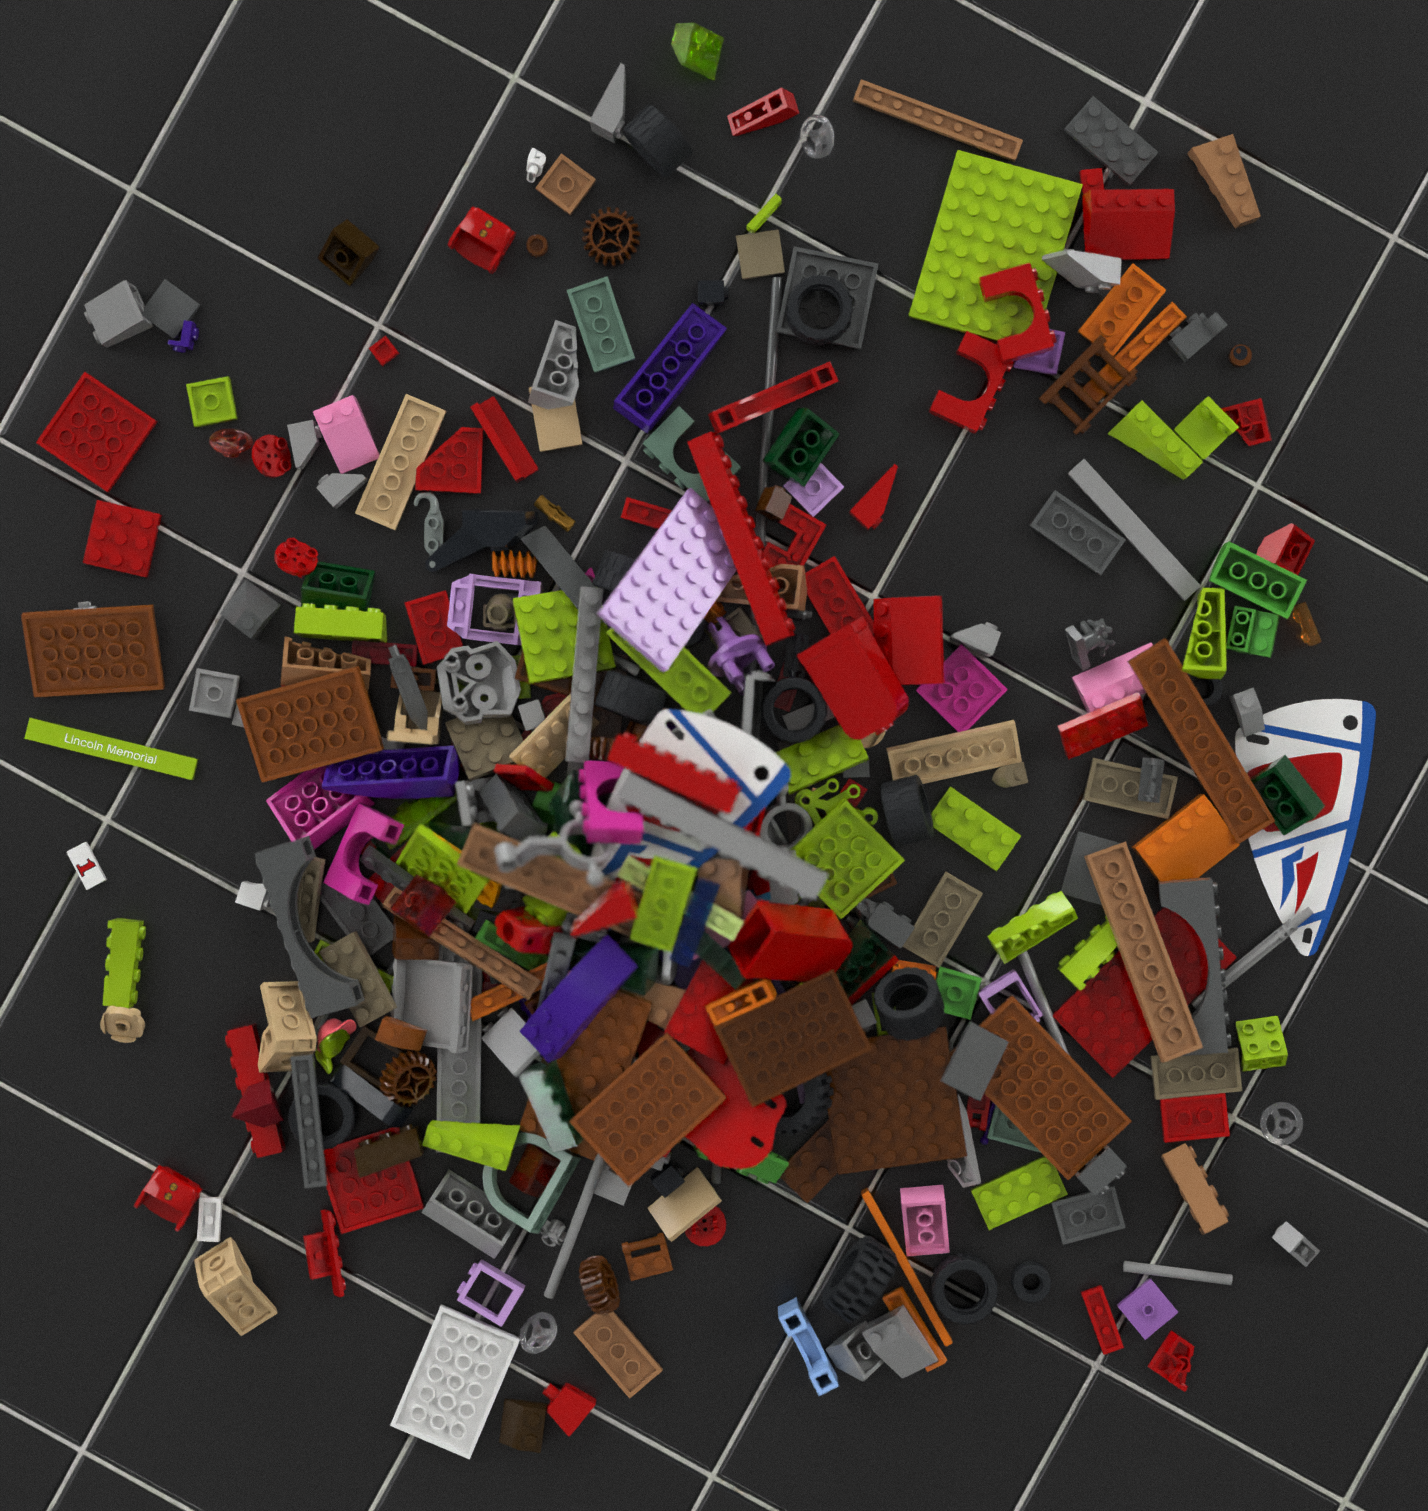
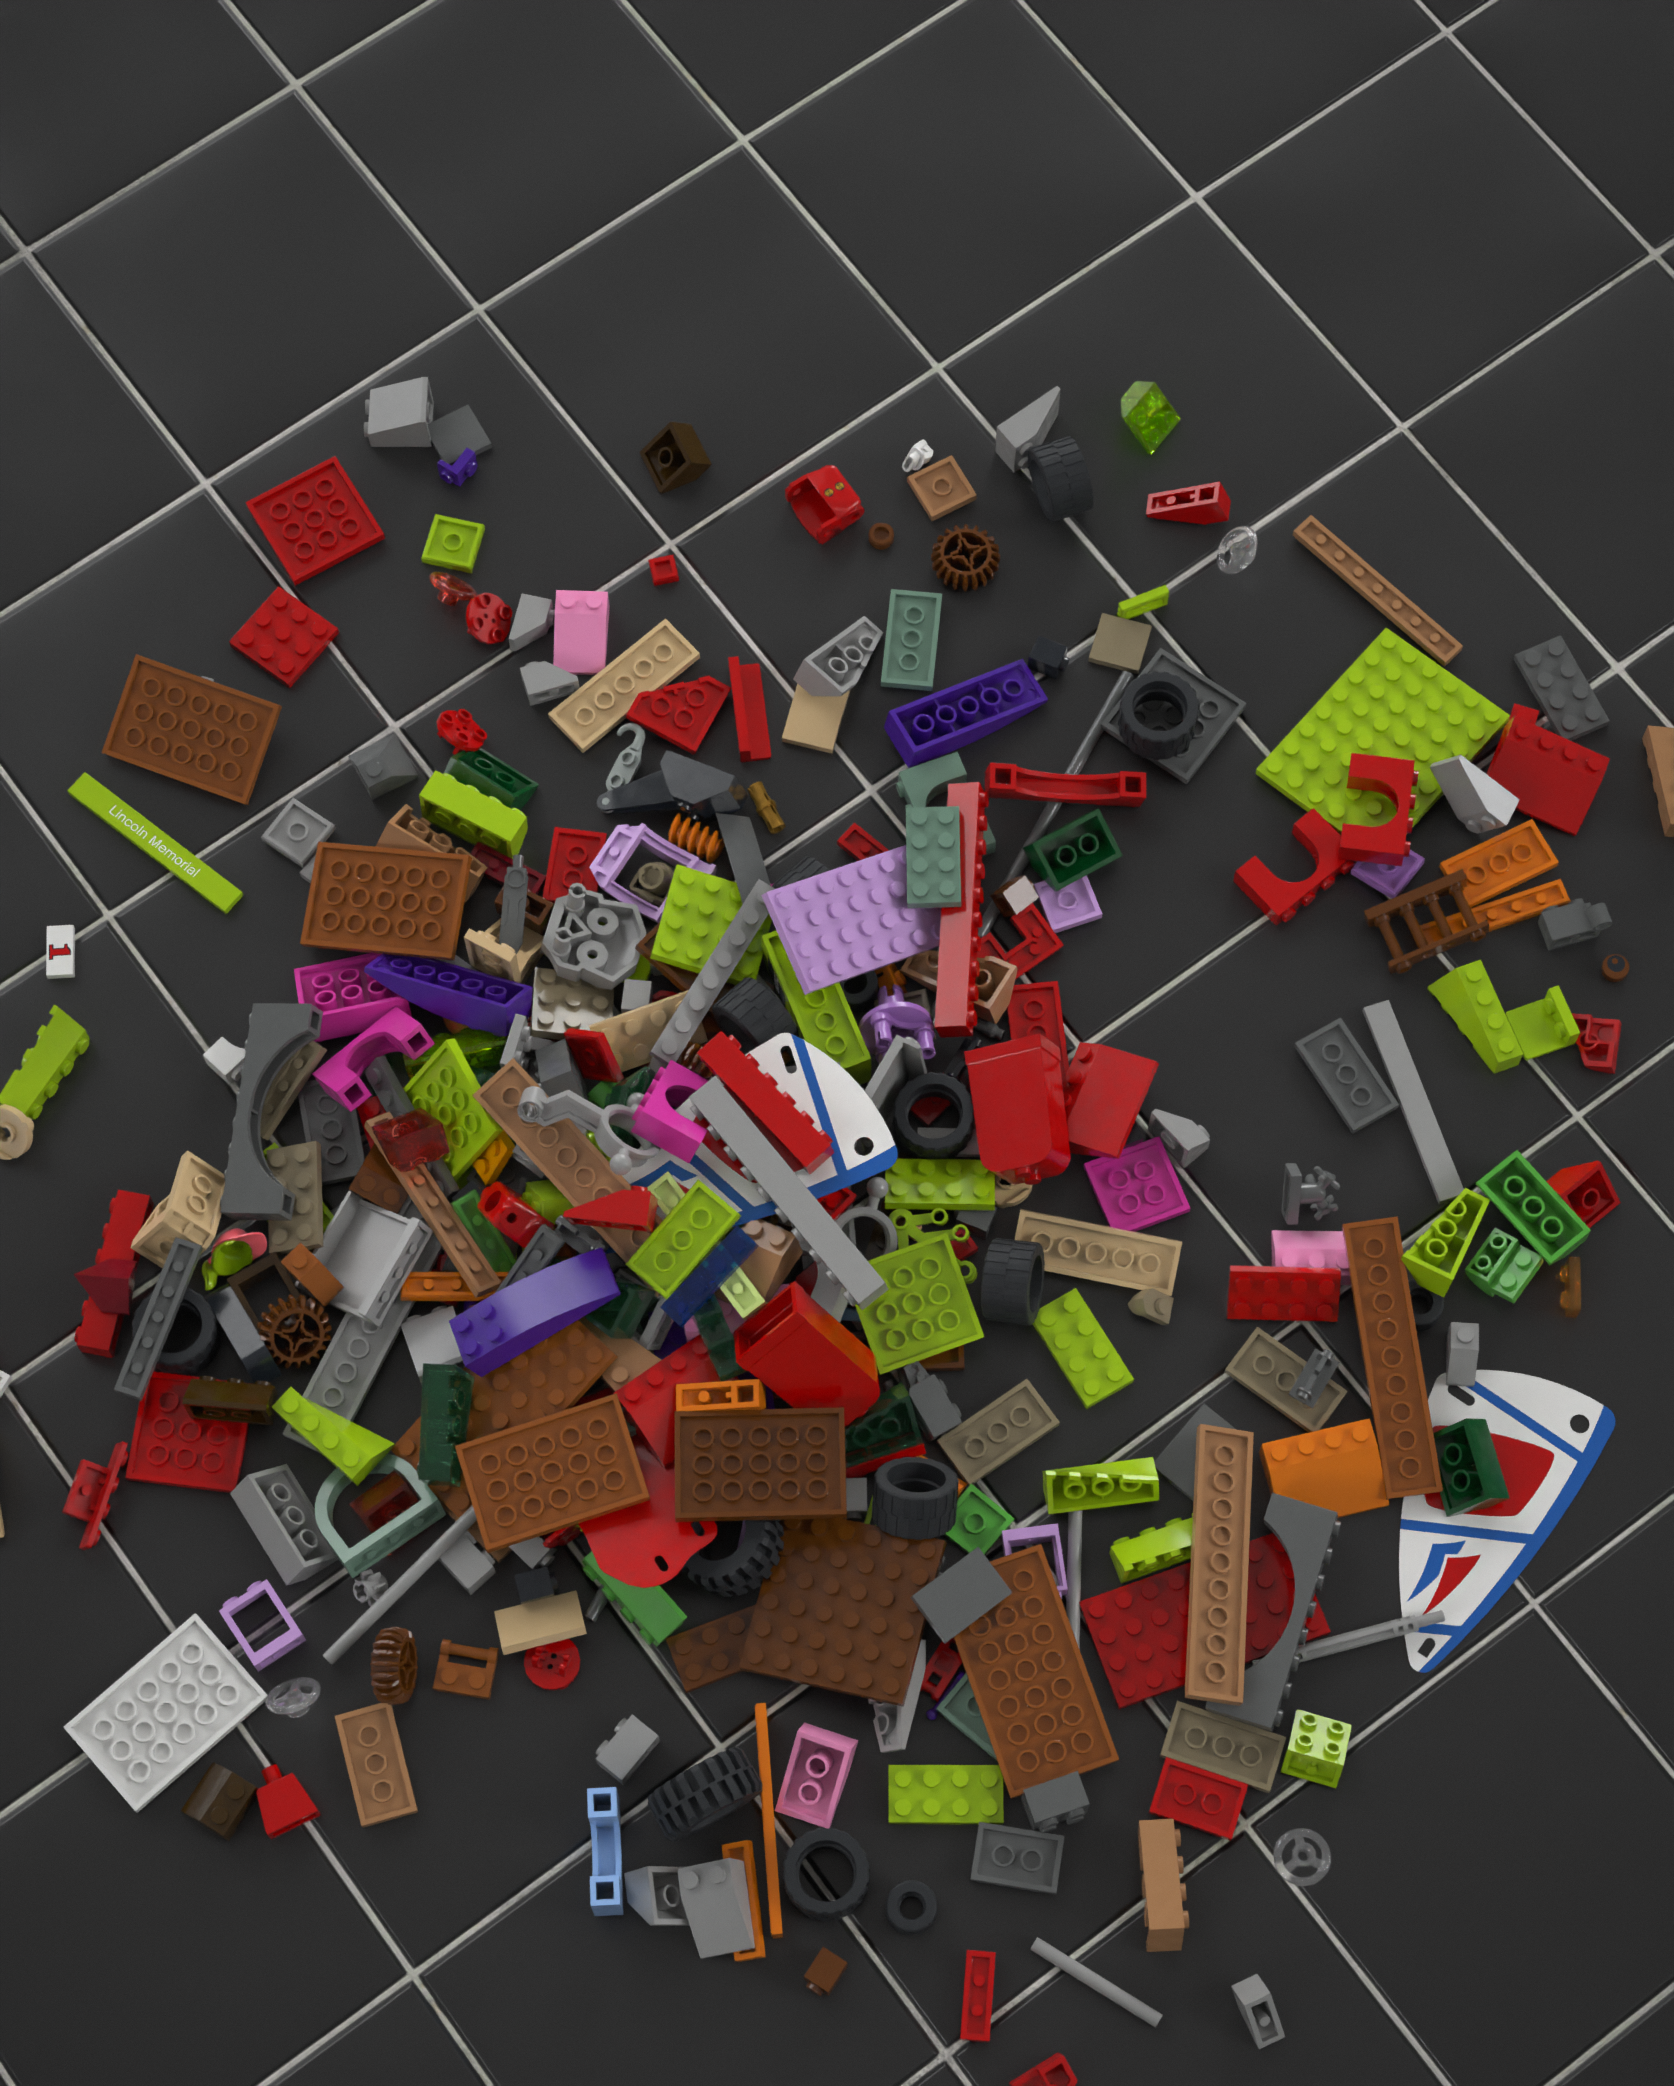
camera: 30 degrees right, 20 degrees down
(704, 509) = (933, 857): none -> sand green plate
(786, 1262) = (626, 1749): none -> light grey brick
(873, 503) = (1125, 946): red slope -> none
(992, 1351) = (824, 1972): none -> reddish brown brick
(1147, 1308) = (1039, 2009): medium lavender plate -> none

